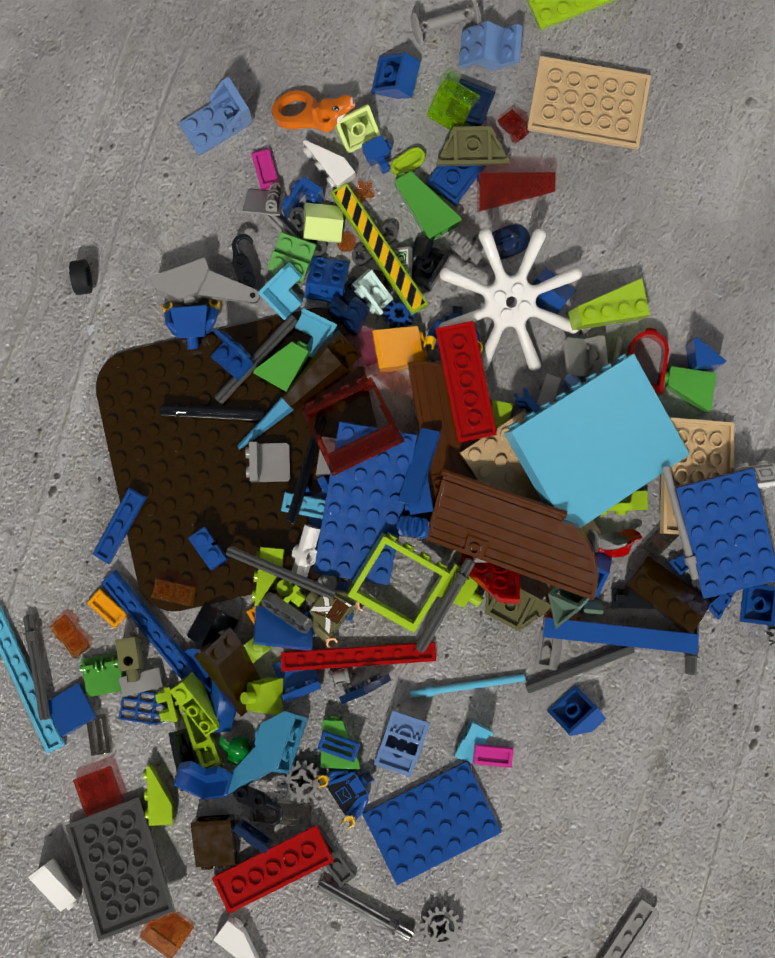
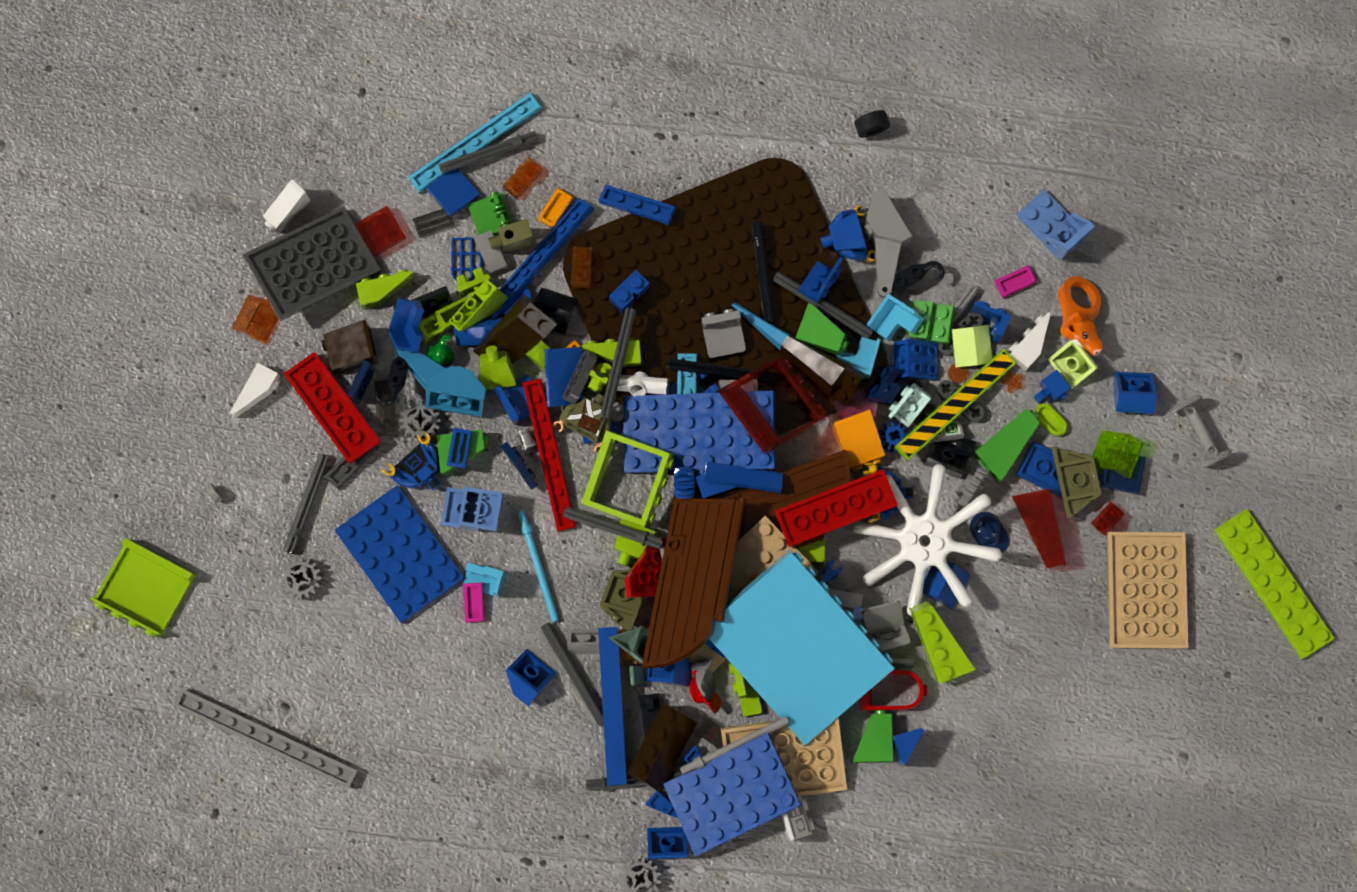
camera: 80 degrees right, 5 degrees down
(265, 201) = (981, 285): light grey hinge -> none
(490, 46) = (1183, 479): medium blue bracket -> none

